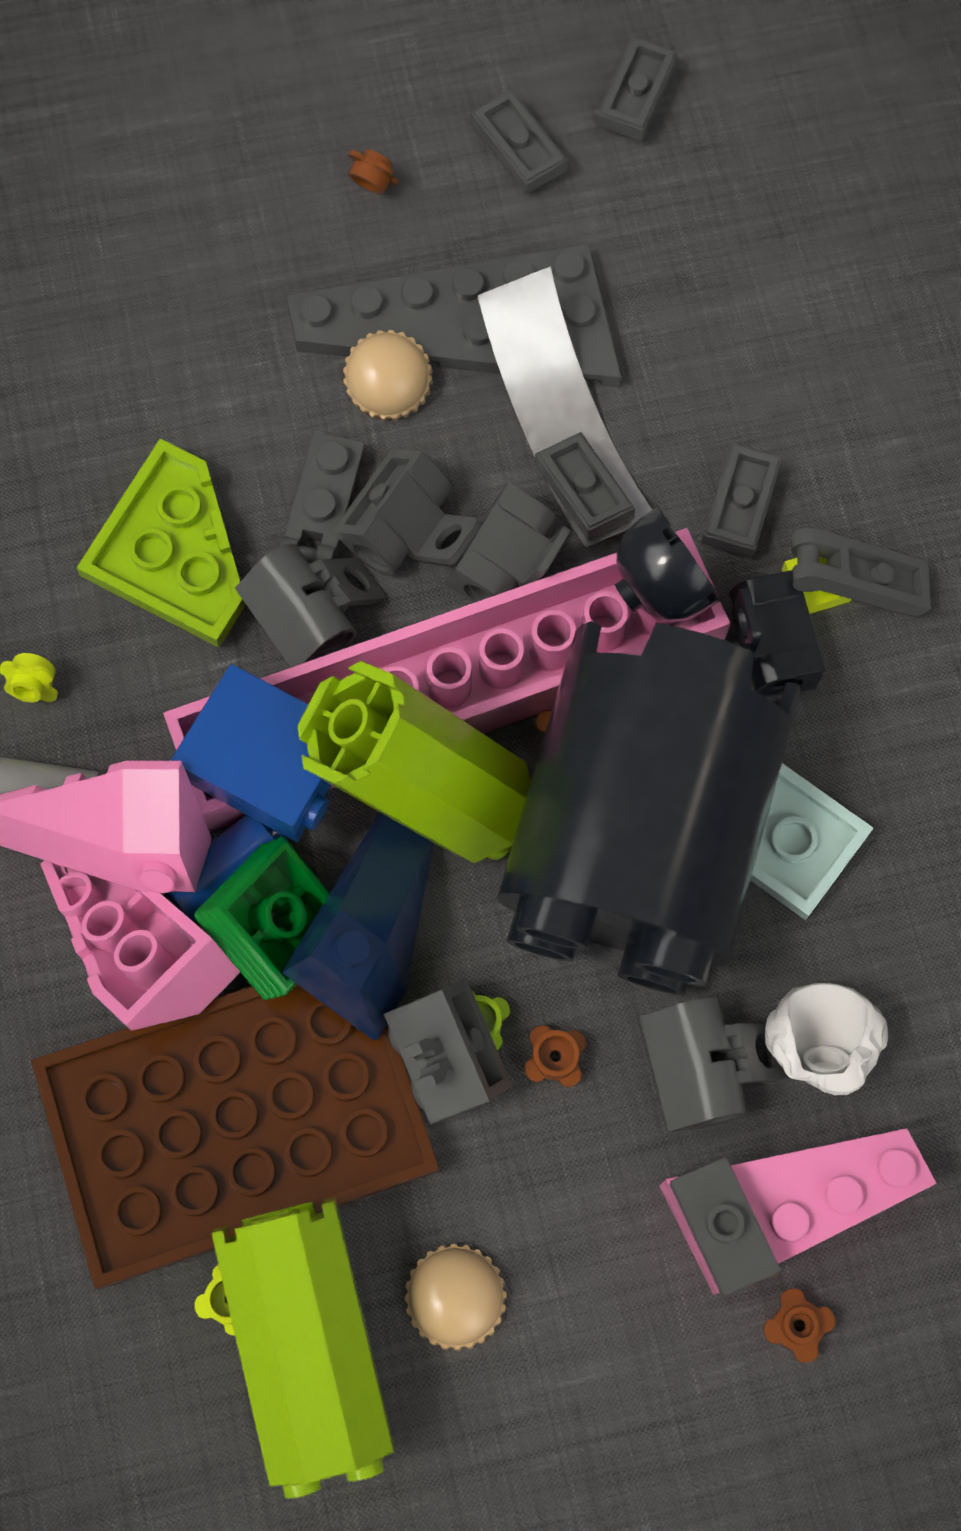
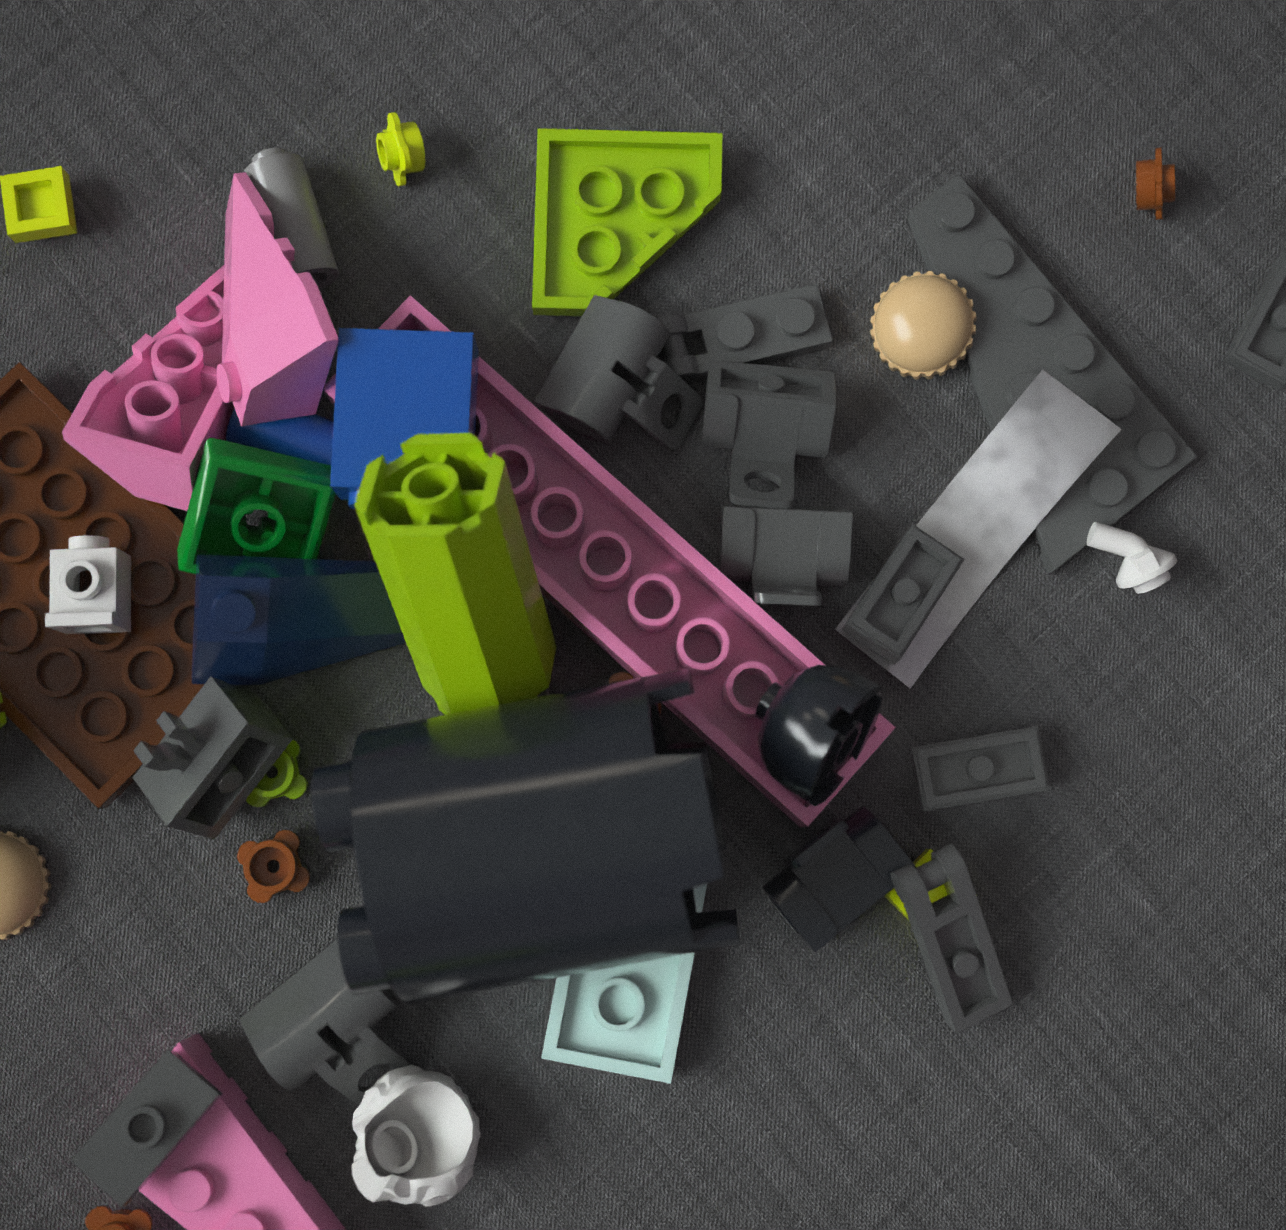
camera: 60 degrees right, 10 degrees up
(269, 1099) = (105, 604): none -> white brick
(649, 316) = (1142, 565): none -> white plate

